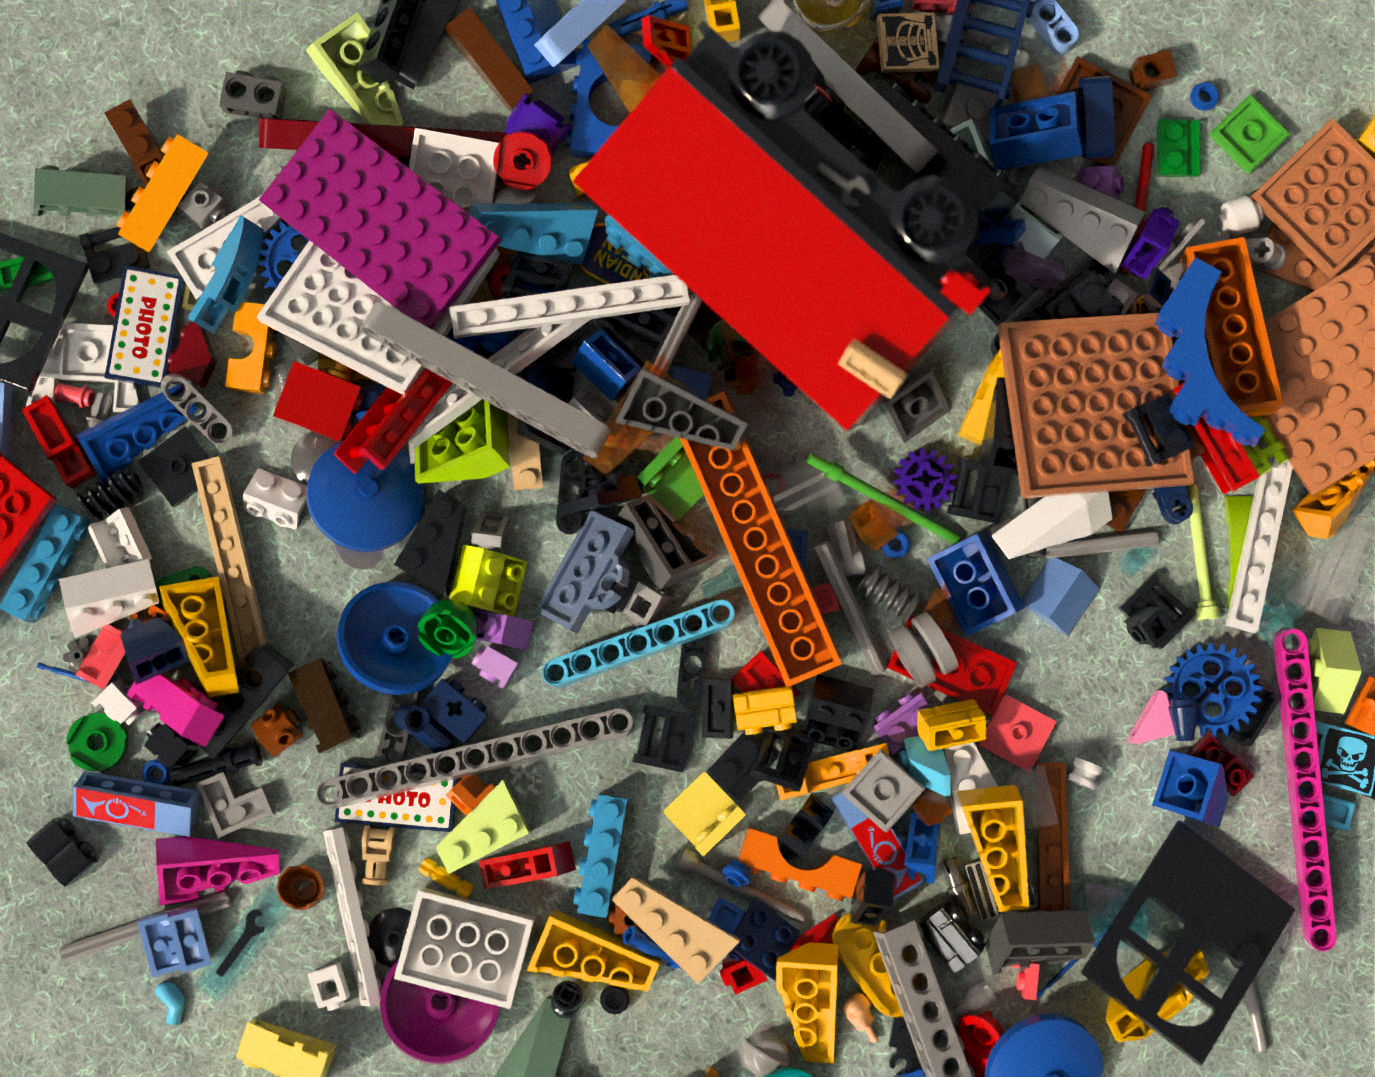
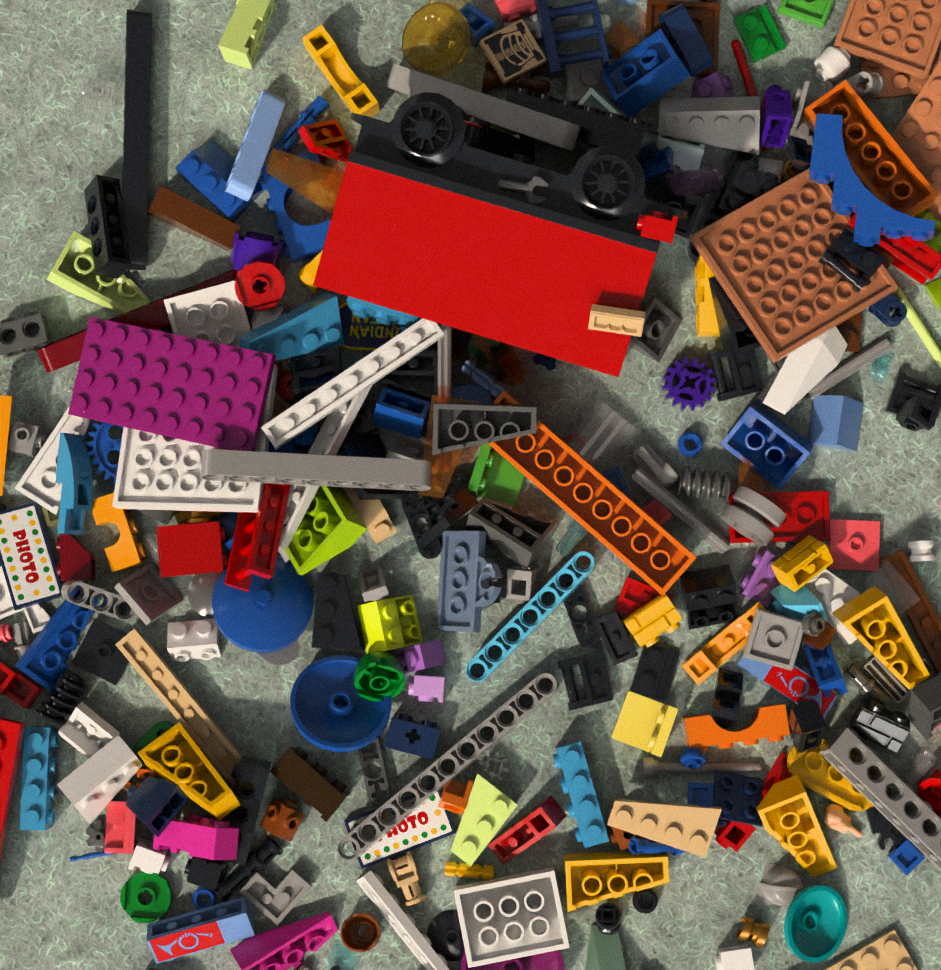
camera: 15 degrees left, 0 degrees up
(251, 427) = (148, 594): none -> light grey plate
(424, 729) = (396, 762): dark blue piece -> none
(709, 369) = (483, 378): none -> medium blue axle
(792, 759) = (692, 648): black plate -> none
(836, 472) = (619, 410): bright green bar -> none
(872, 525) = (666, 437): clear orange brick -> none
(931, 794) = (813, 624): none -> dark grey plate

